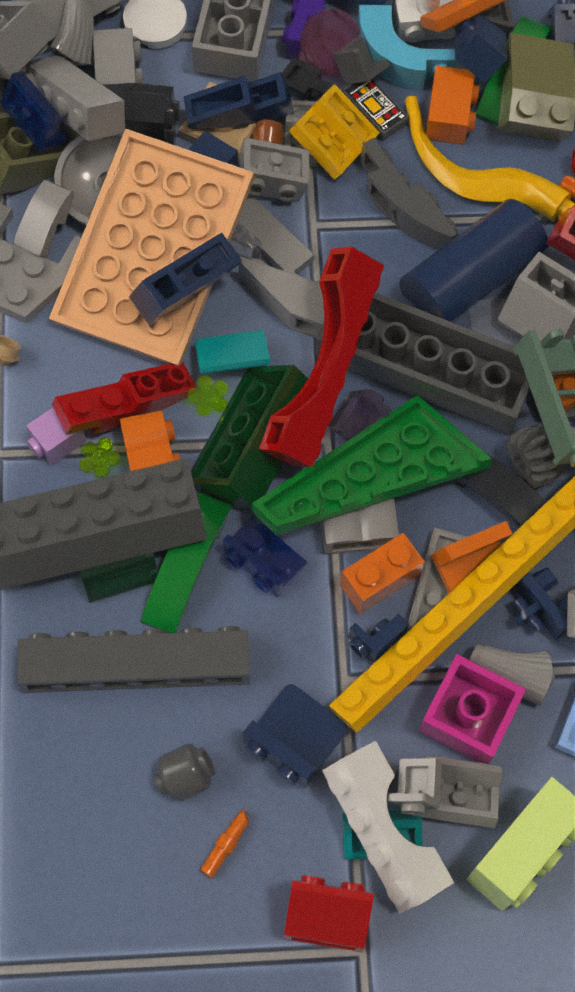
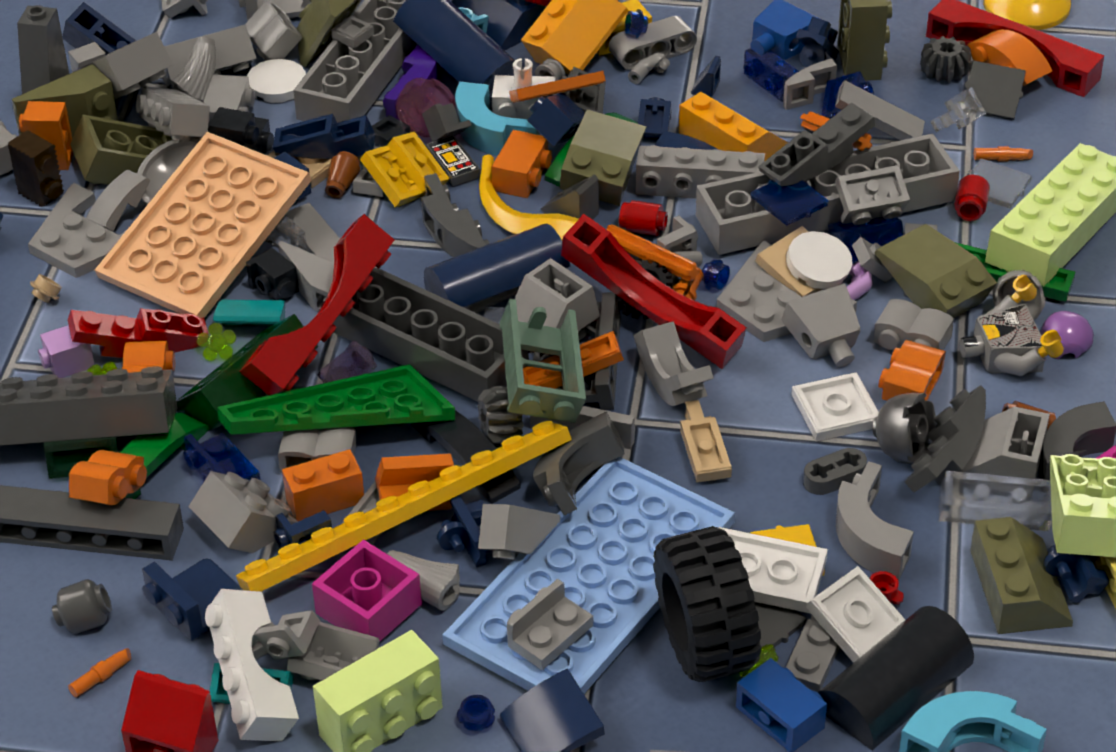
camera: 15 degrees right, 25 degrees down
(32, 112) = (133, 117): clear blue bracket -> none
(167, 616) = (107, 477): none -> orange brick
(184, 278) = (216, 242): dark blue slope -> none
(241, 297) = (272, 275): none -> black brick
(277, 168) = (336, 188): light grey bracket -> none
(308, 620) = (239, 510): none -> light grey slope
(518, 148) = (576, 199): none -> dark grey slope

